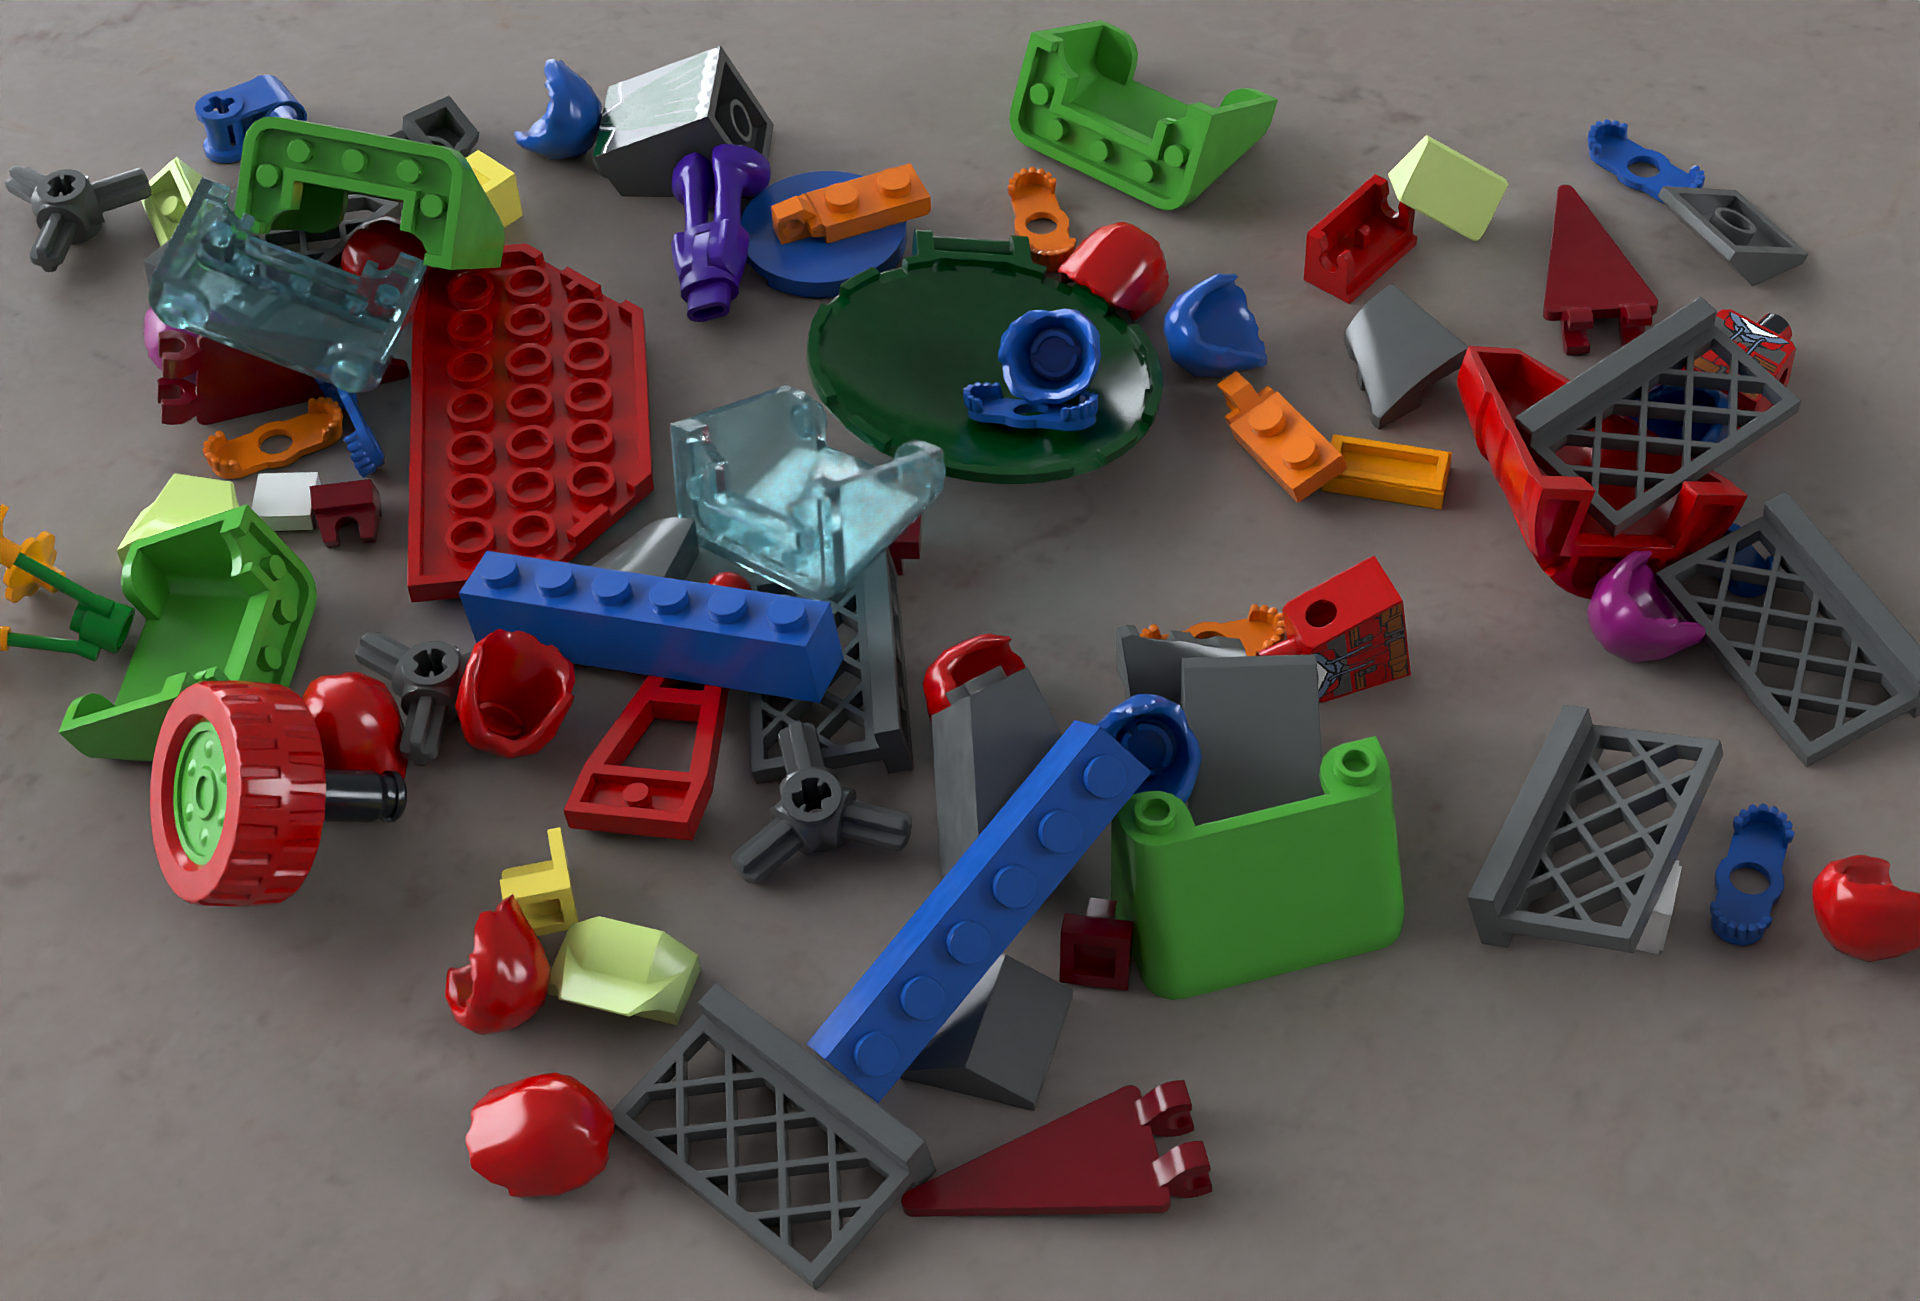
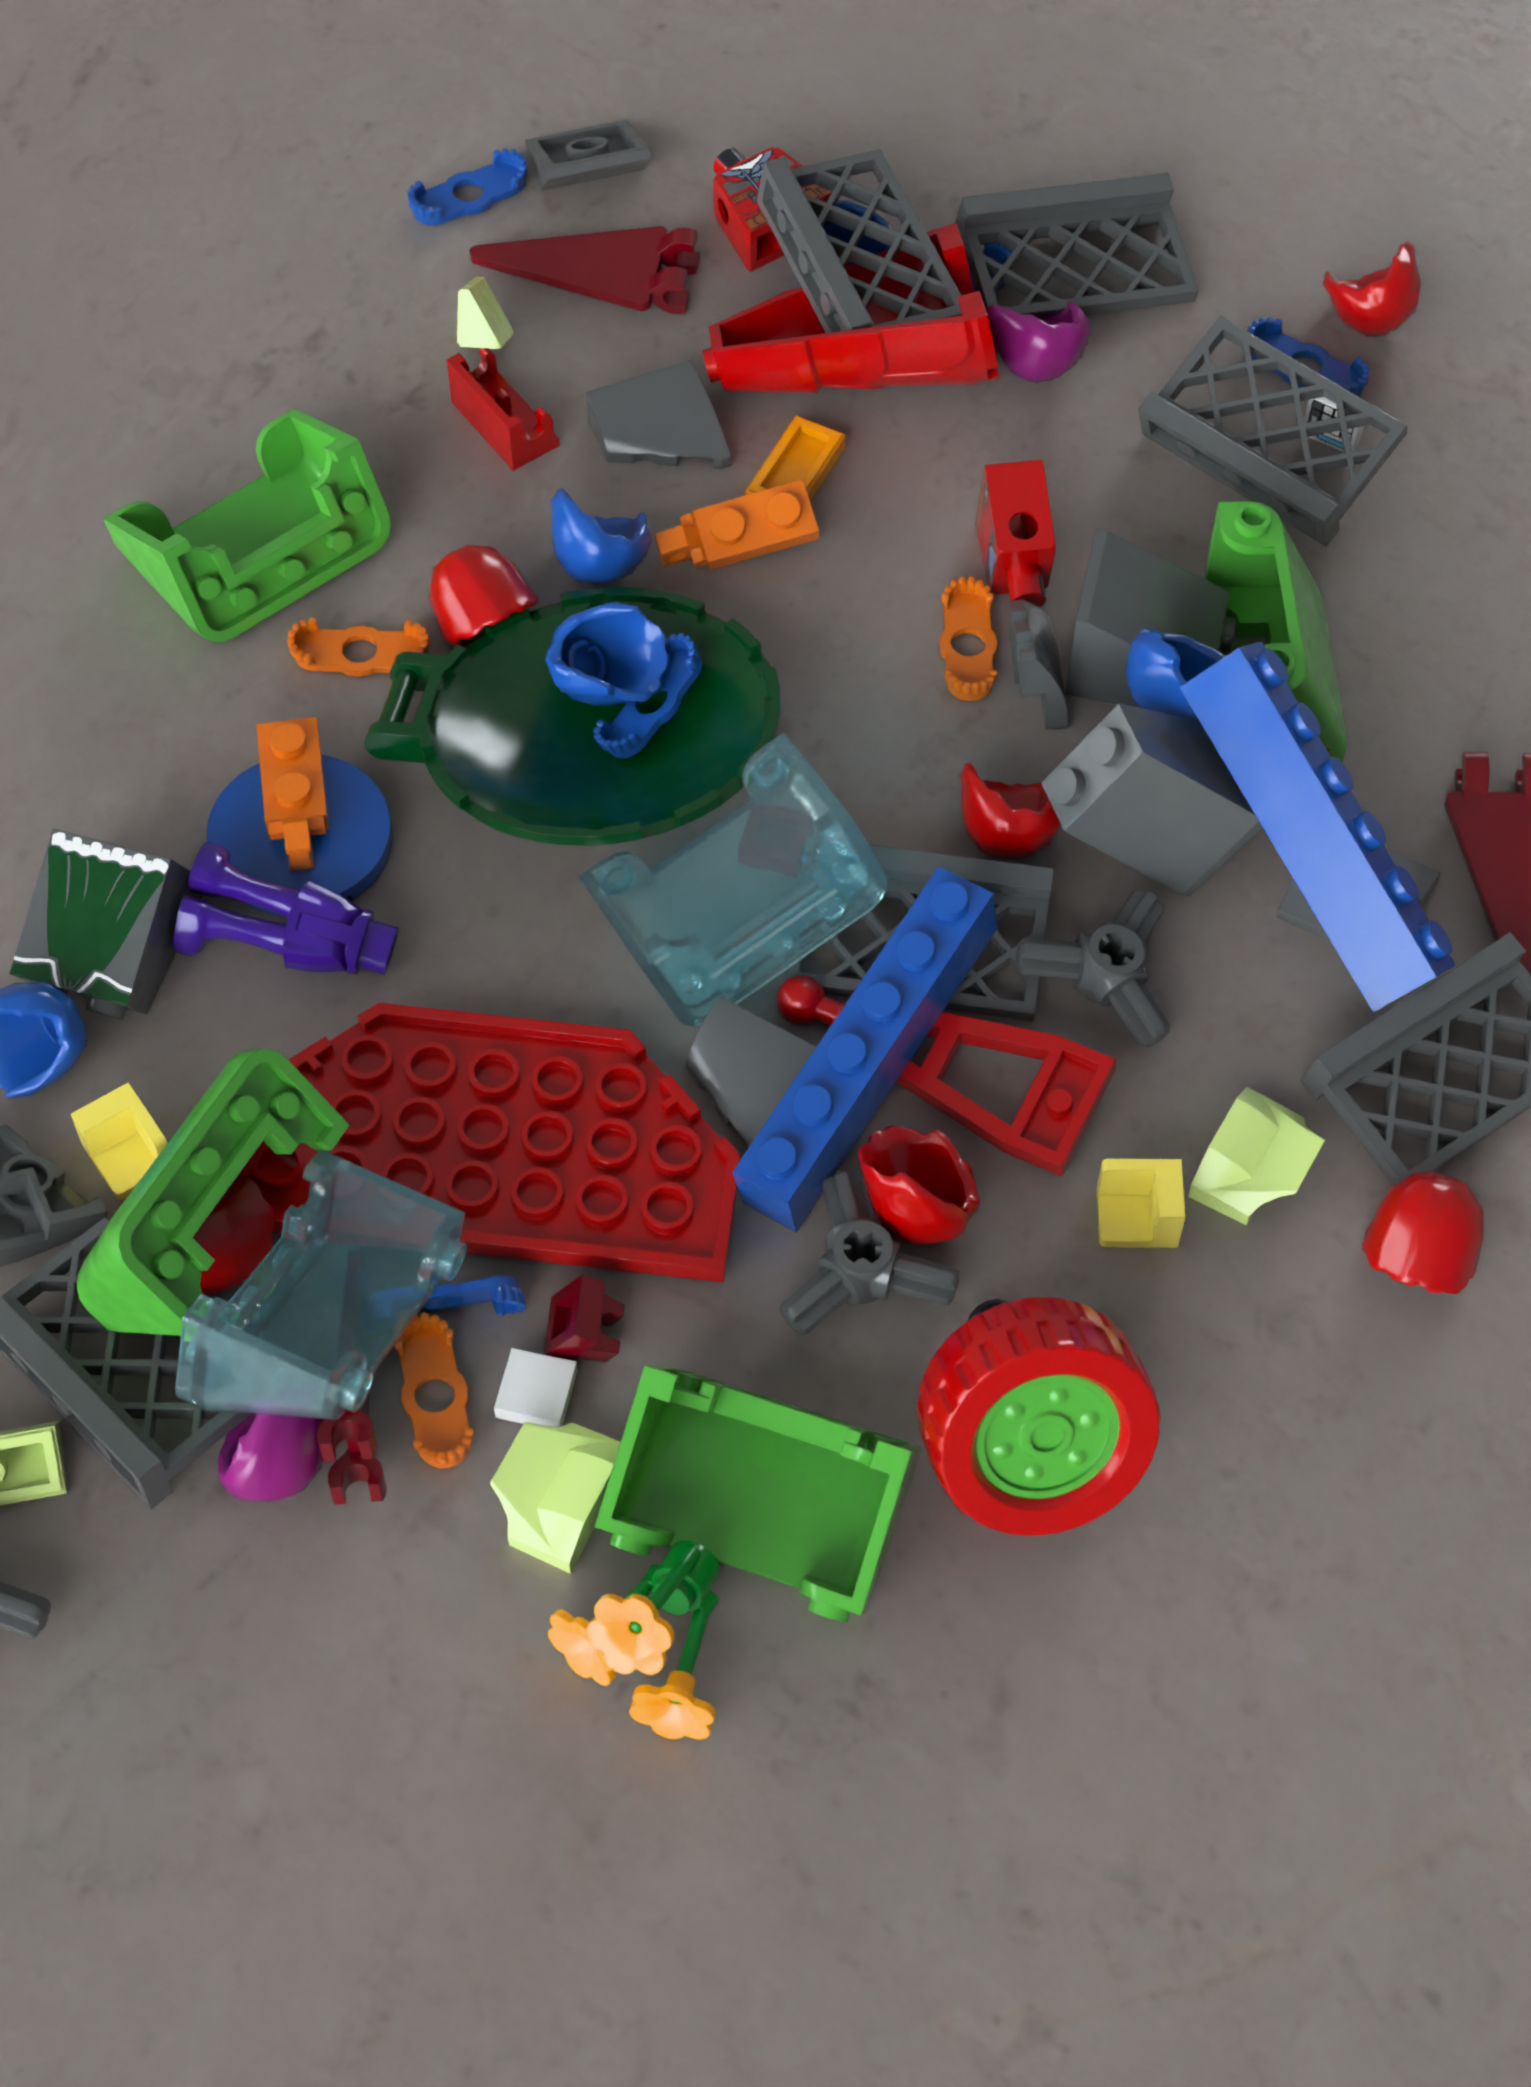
camera: 80 degrees left, 10 degrees up
(356, 723) = (900, 1338): red hair -> none
(504, 976) = (1250, 1243): red hair -> none

